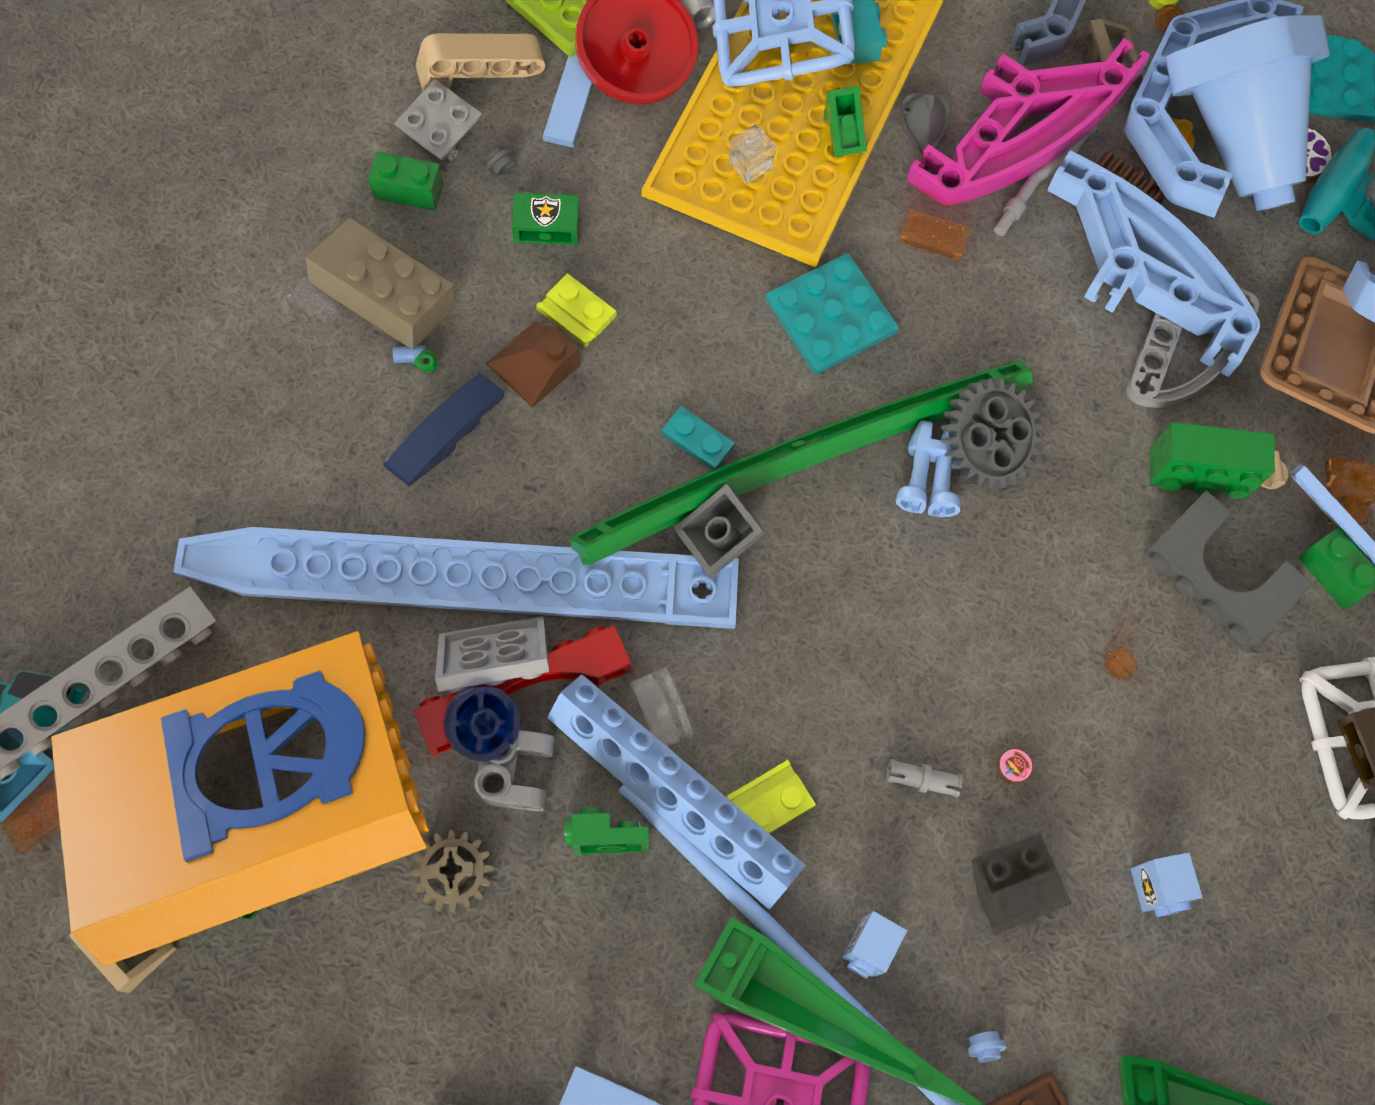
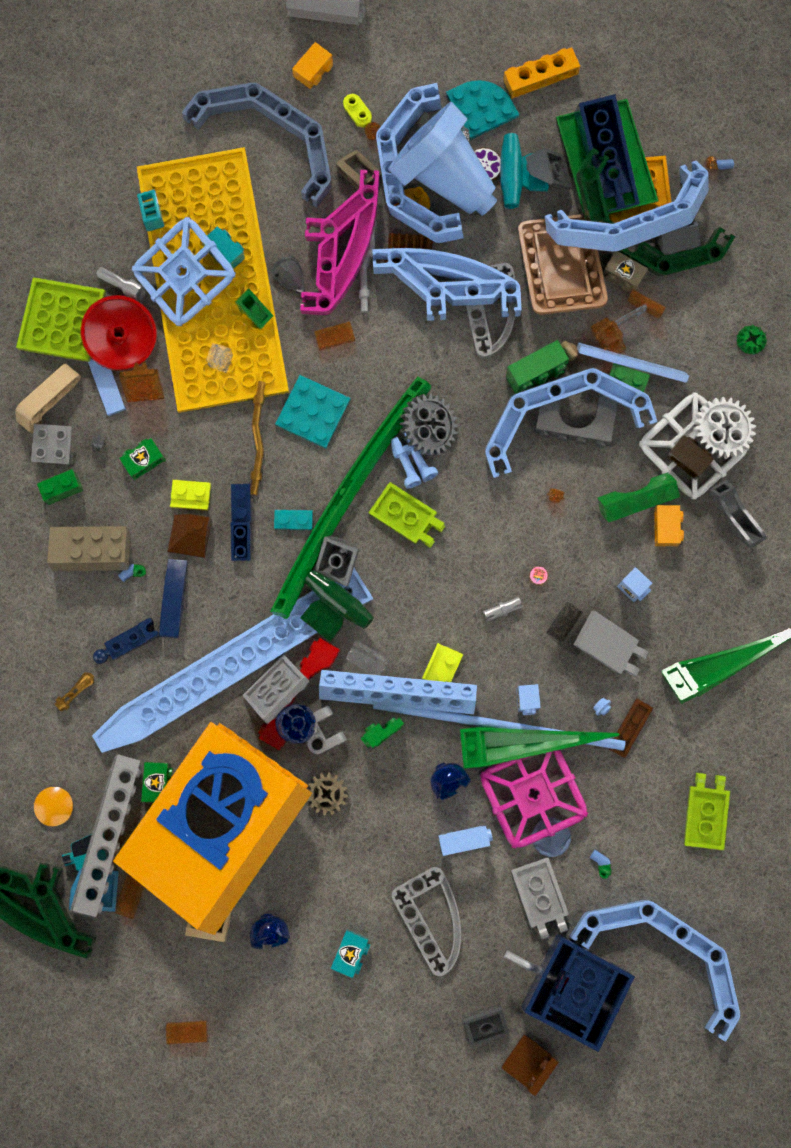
camera: 25 degrees left, 10 degrees up
(45, 602) = (53, 806): none -> light orange dish
(199, 1026) = (269, 931): none -> clear blue cylinder
(215, 659) = (155, 779): none -> green brick
(232, 458) = (85, 681): none -> pearl gold piece
(334, 444) = (126, 642): none -> dark blue plate
(618, 122) = (141, 384): none -> clear orange plate
(621, 390) = (241, 522): none -> dark blue slope
(656, 985) = (448, 779): none -> clear blue cylinder
(672, 592) = (333, 606): none -> dark green plate
(763, 248) = (256, 474): none -> pearl gold bar
(869, 542) = (406, 515): none -> lime tile
(1064, 951) = (609, 644): none -> light grey tile
(1275, 829) = (667, 525): none -> light orange brick
(1286, 762) = (658, 491): none -> green arch
(1307, 548) = (569, 385): none -> light blue piece

